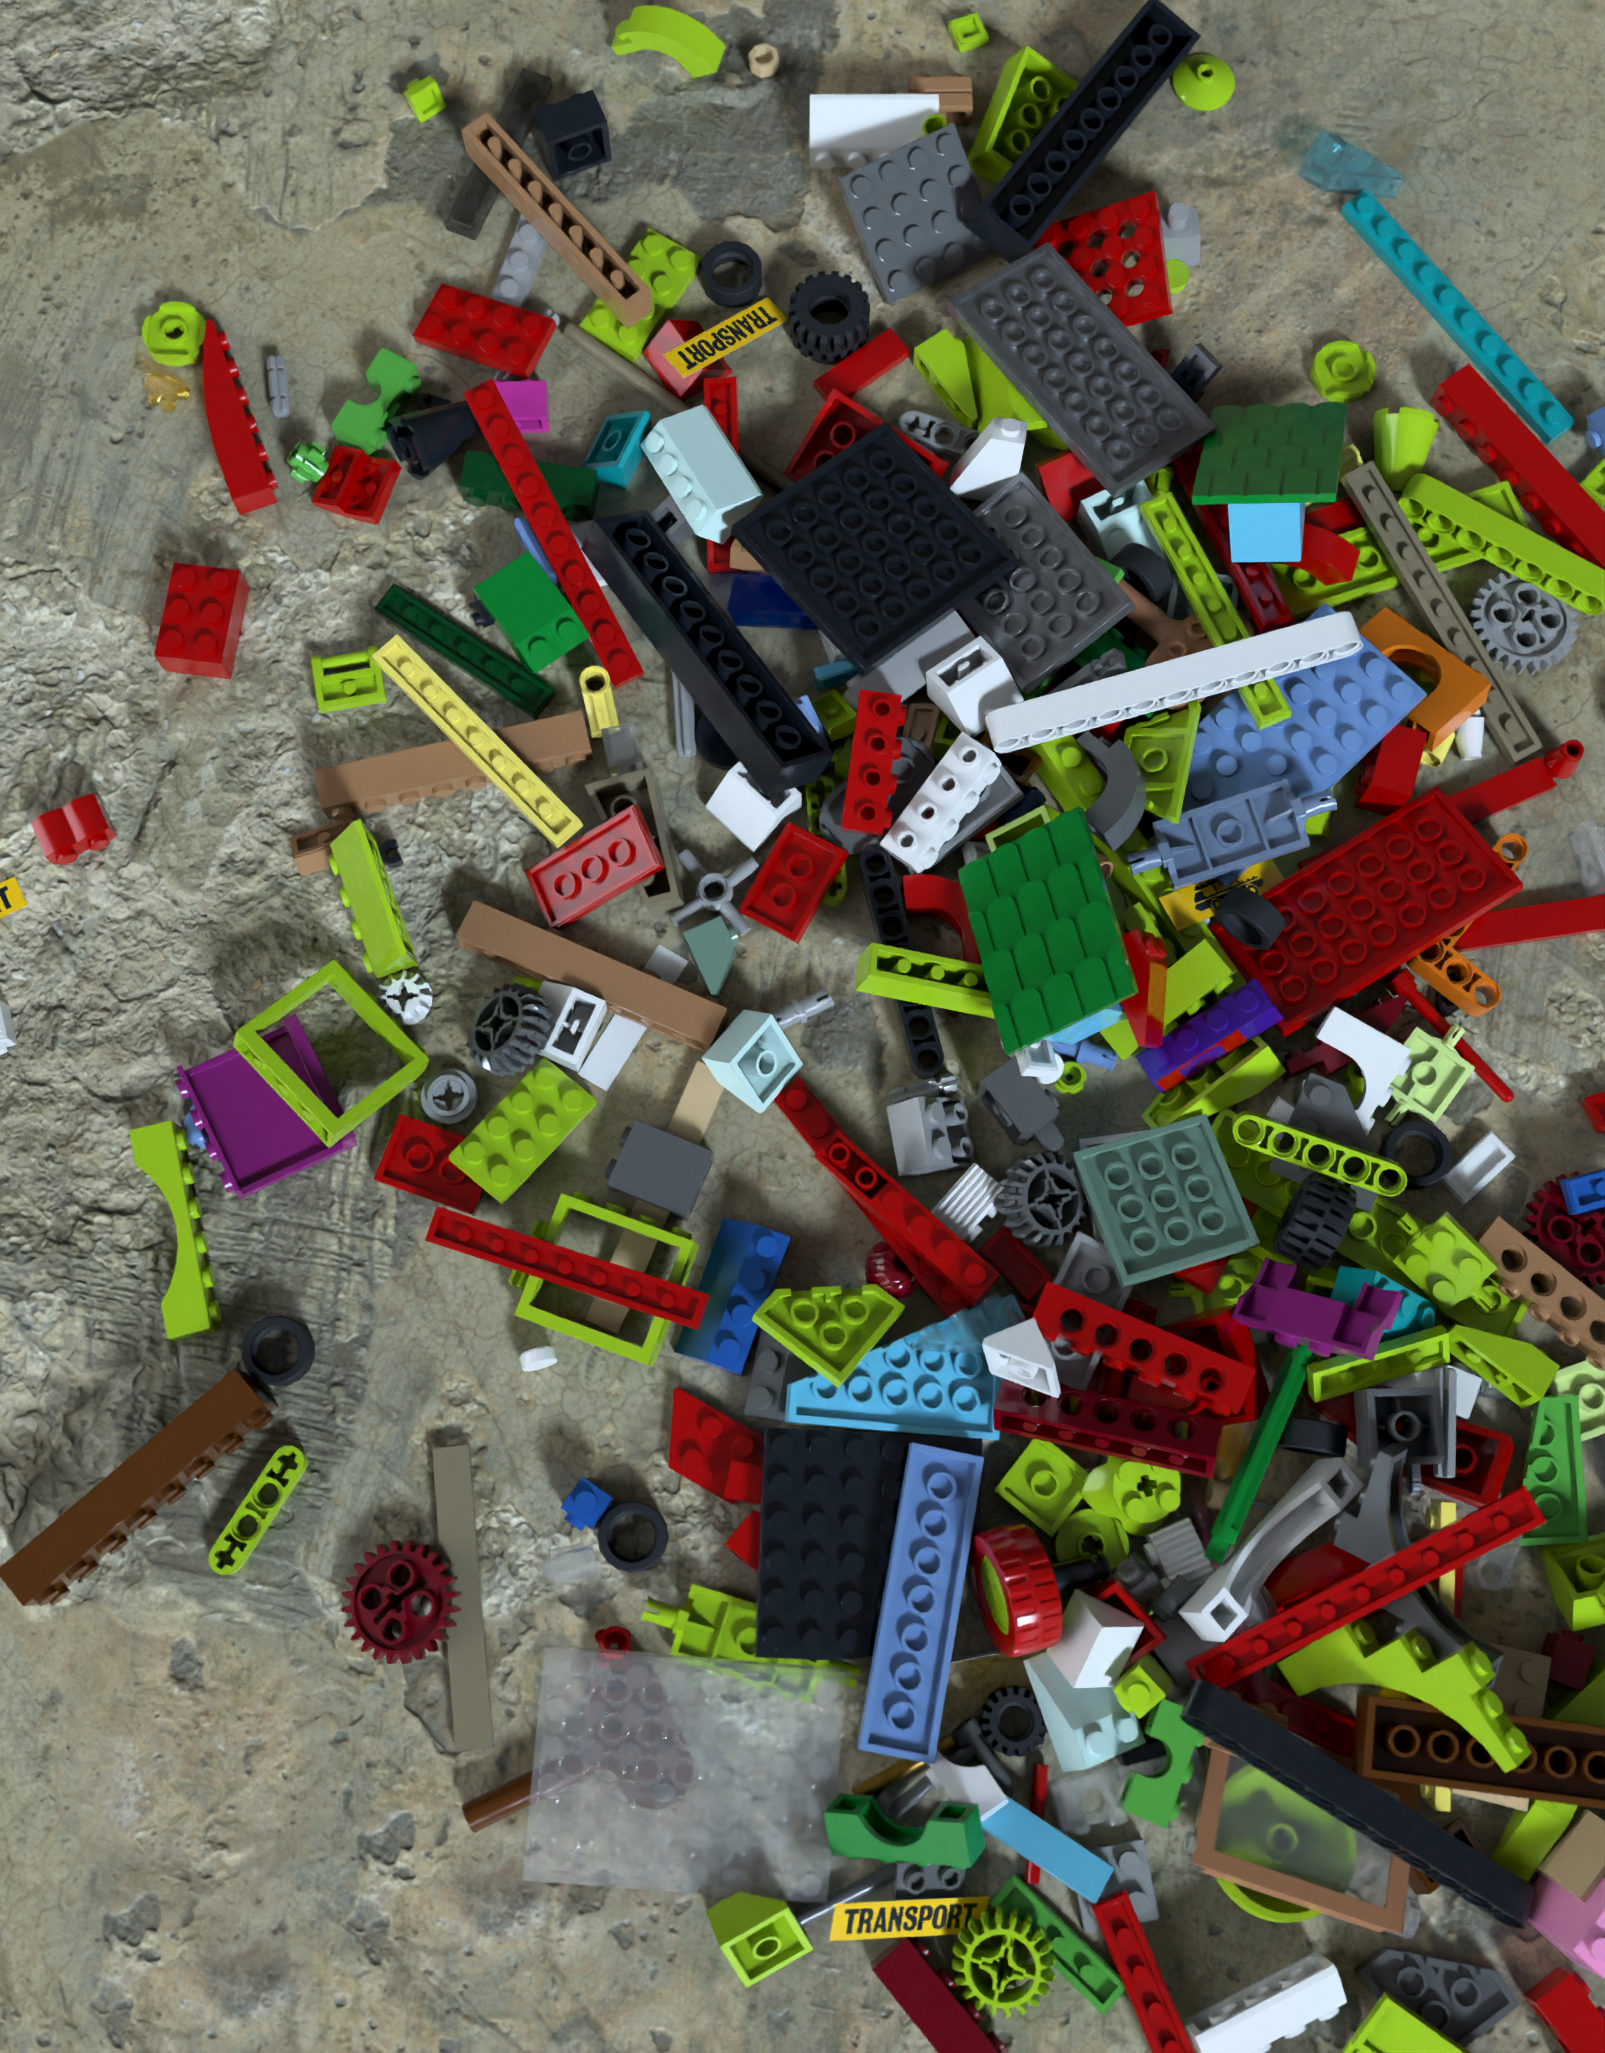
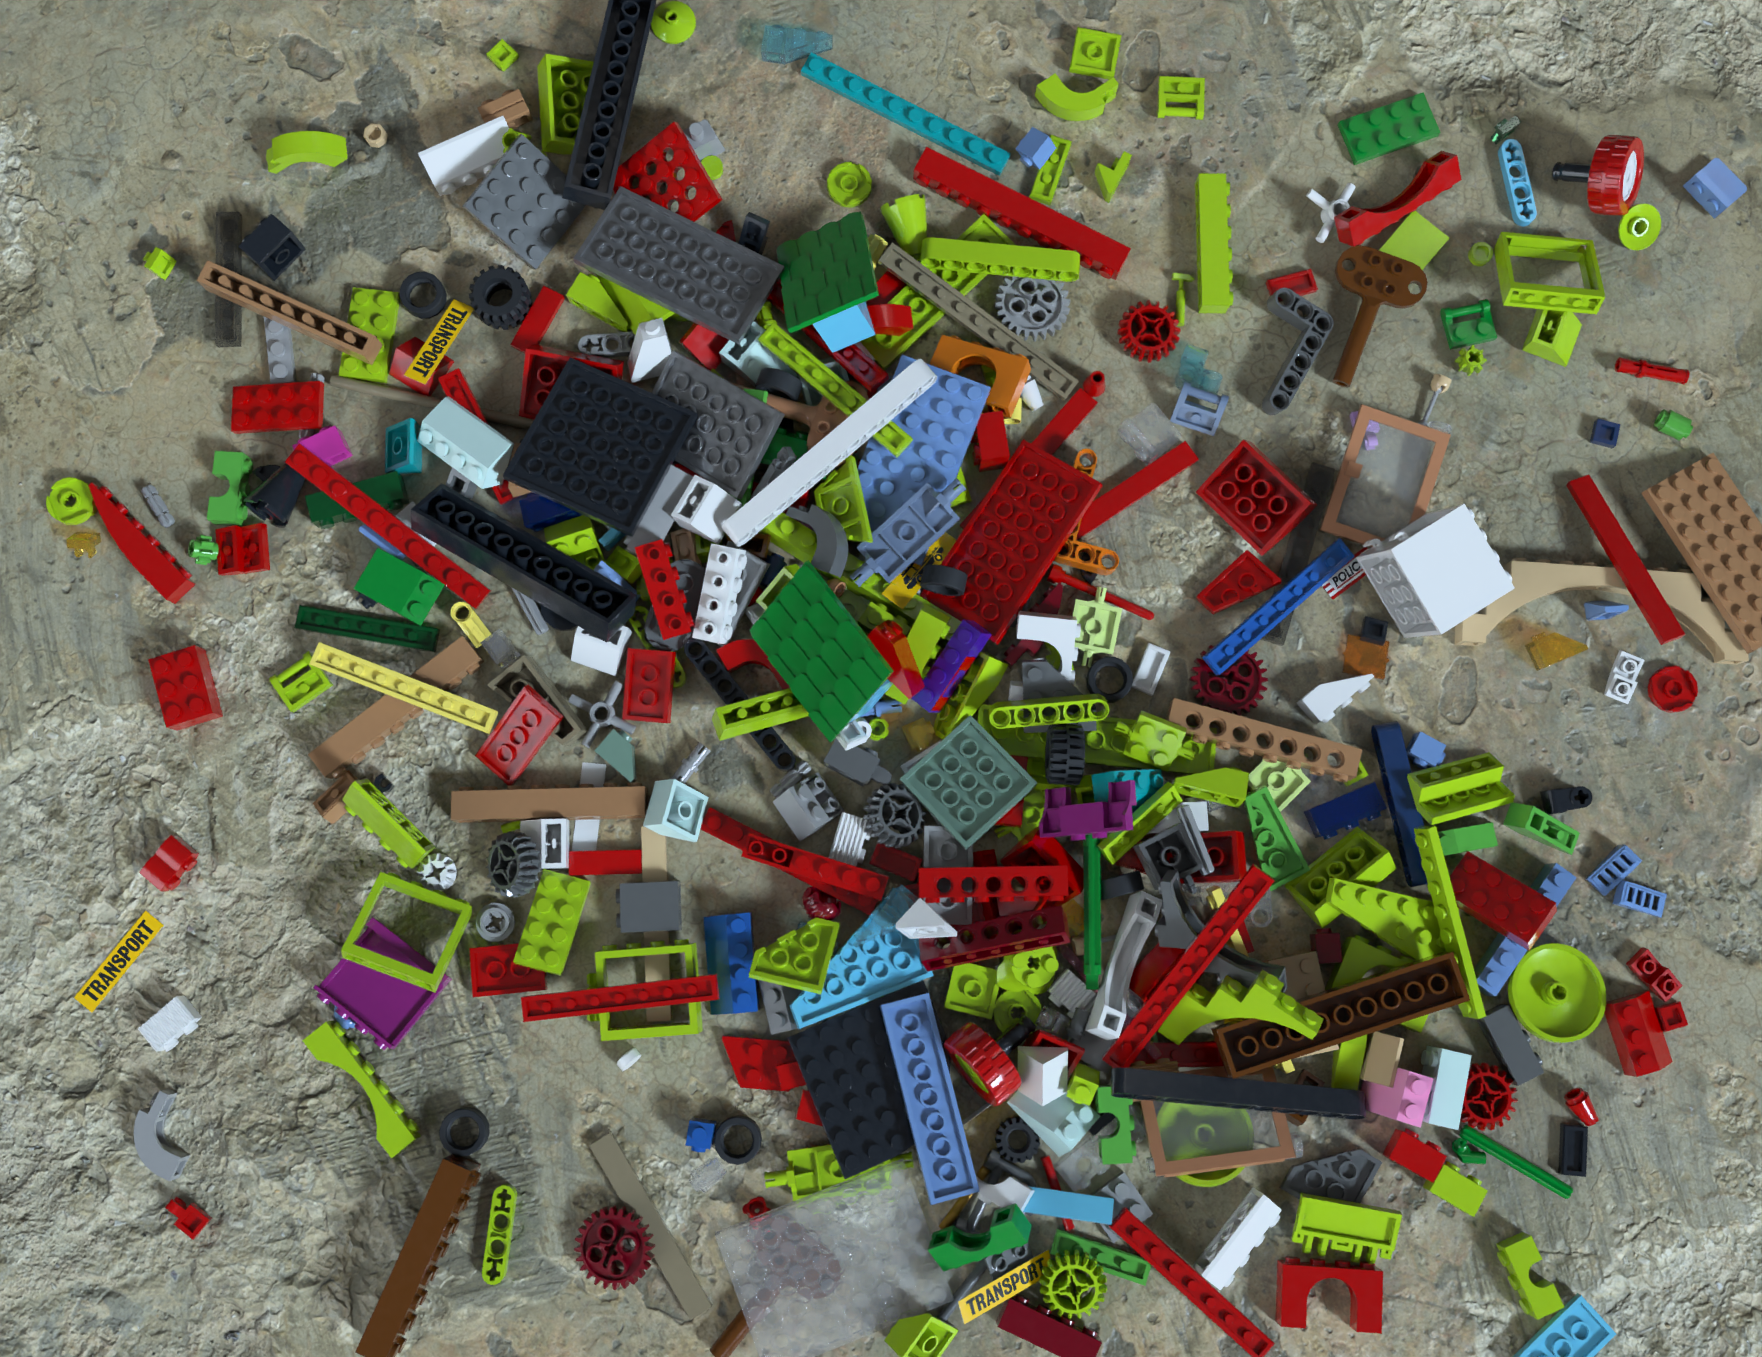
camera: 25 degrees left, 5 degrees up
(628, 1086) = (605, 862): none -> red tile
(786, 654) = (577, 540): none -> lime slope
(1122, 1108) = (918, 734): none -> clear yellow brick

